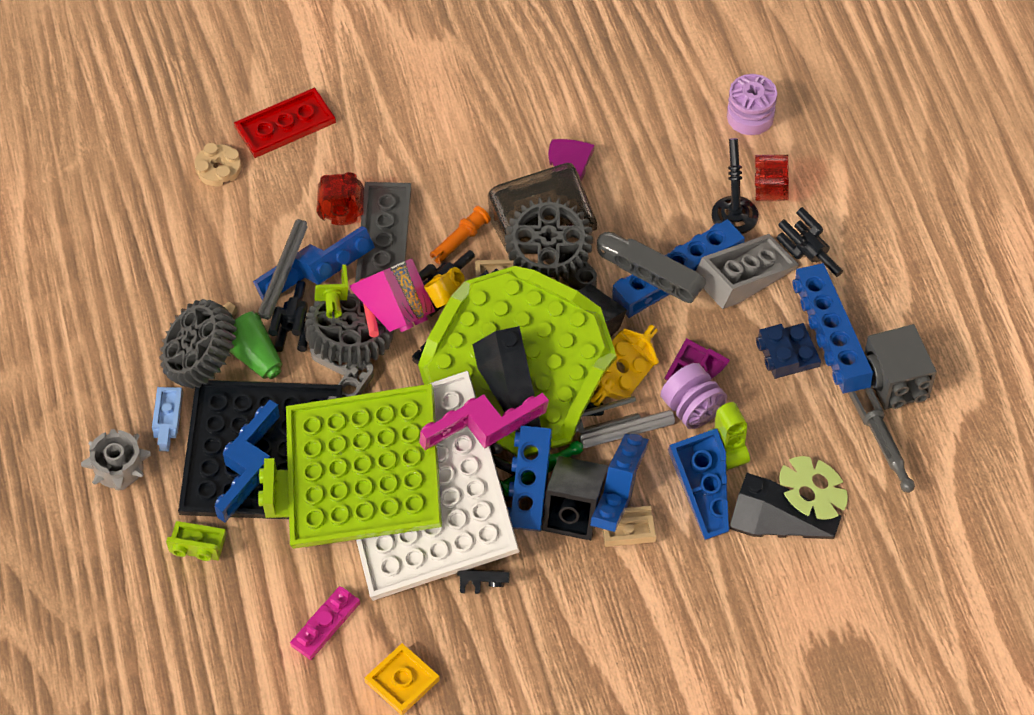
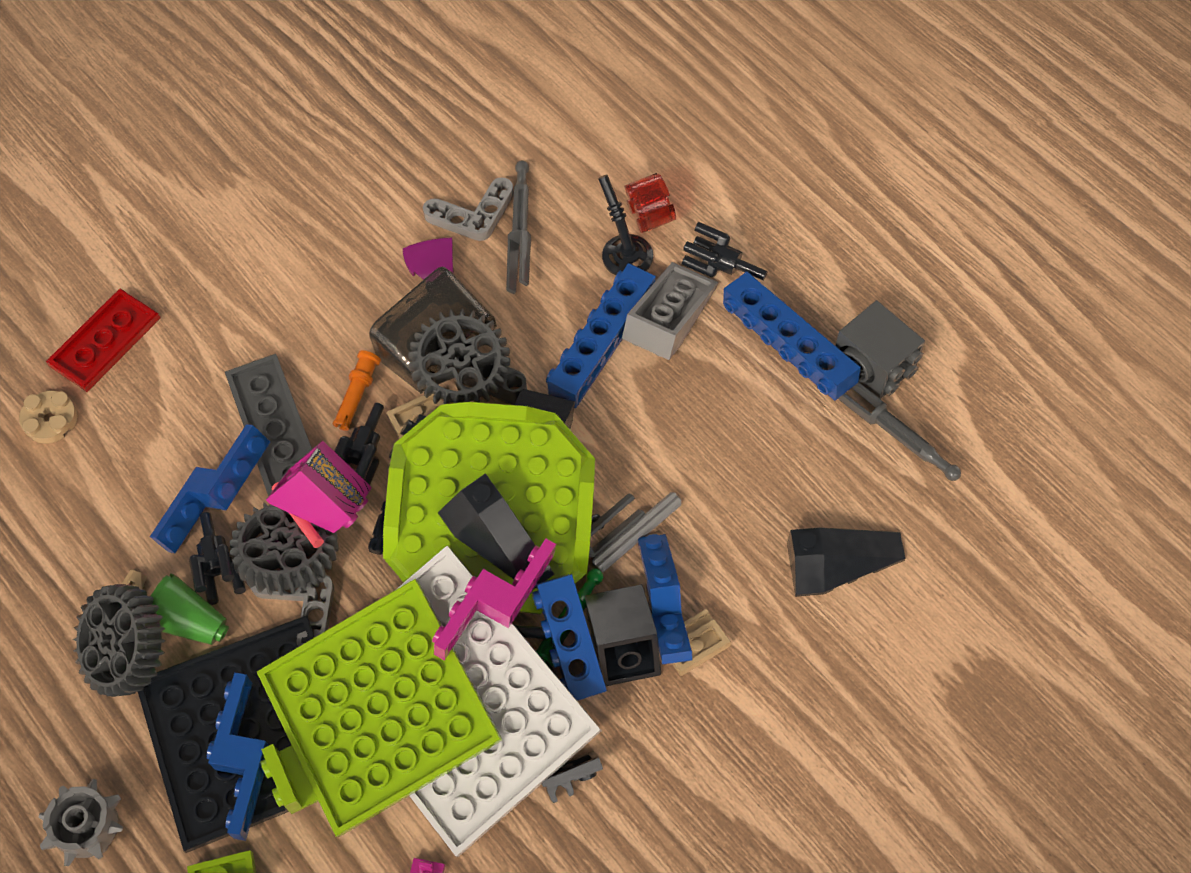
camera: 25 degrees left, 5 degrees up
(166, 415) = (118, 738): light blue hinge -> none
(282, 270) = (179, 510): dark grey axle -> none
(333, 294) = (251, 517): lime bracket -> none
(340, 198) = (206, 401): clear red brick -> none
(443, 286) = (371, 457): yellow piece -> none
(622, 137) = (472, 219): none -> light grey beam
(638, 358) = (610, 450): yellow plate -> none
(651, 166) = (519, 233): none -> dark grey piece
(651, 266) = (579, 345): dark grey piece -> none
(693, 353) = (670, 431): magenta brick -> none
(693, 395) = (697, 470): lavender wheel -> none
(702, 473) = (743, 551): blue wedge -> none
(732, 432) = (753, 498): lime piece -> none
(751, 104) = (590, 135): lavender wheel -> none
(787, 349) = (754, 376): dark blue plate -> none
(823, 497) = (875, 518): yellowish green piece -> none

